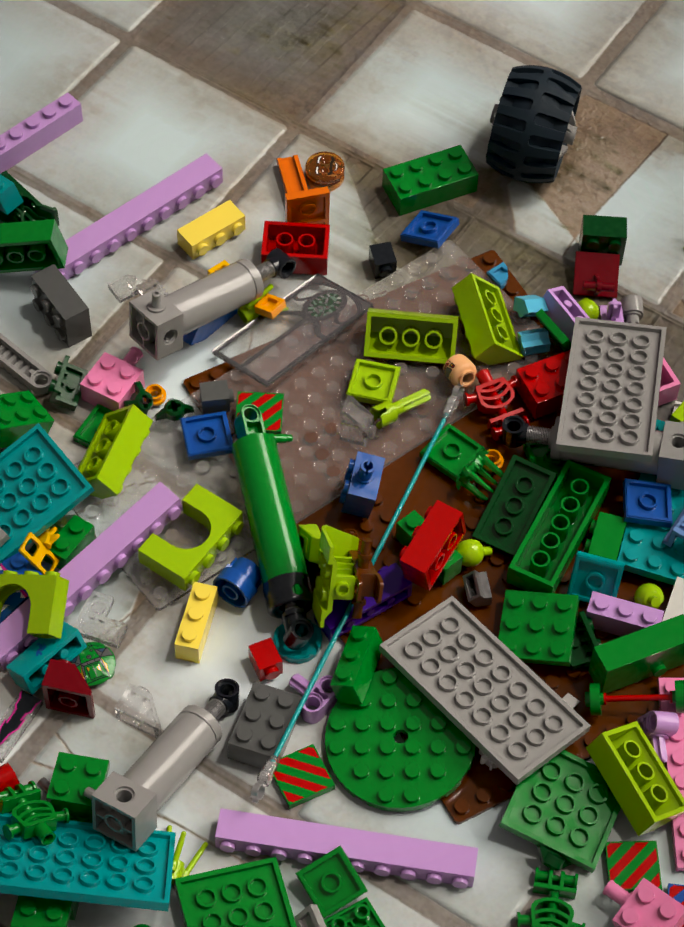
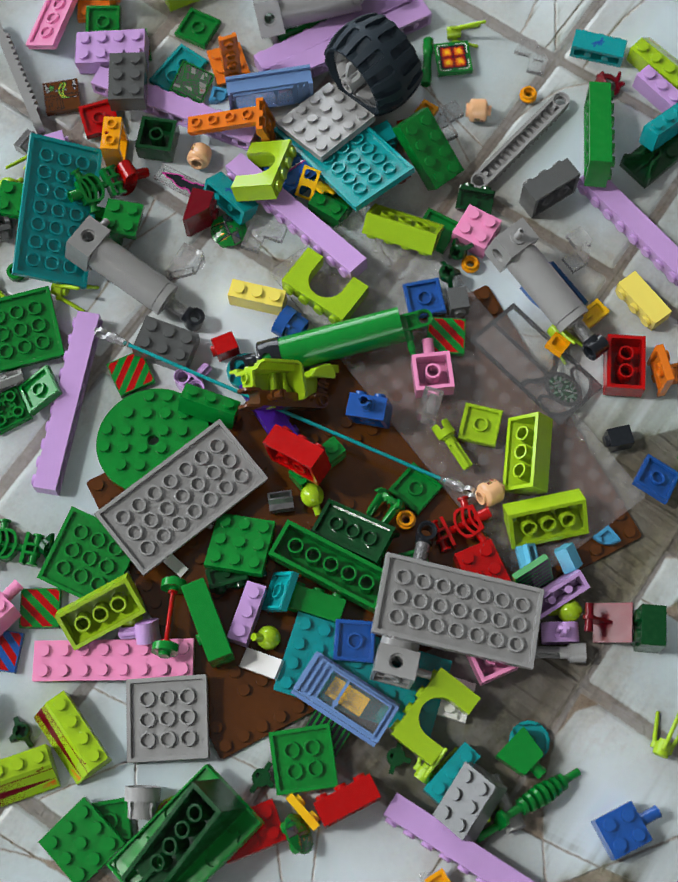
camera: 95 degrees right, 15 degrees up
(311, 421) = (432, 370): none -> bright pink brick

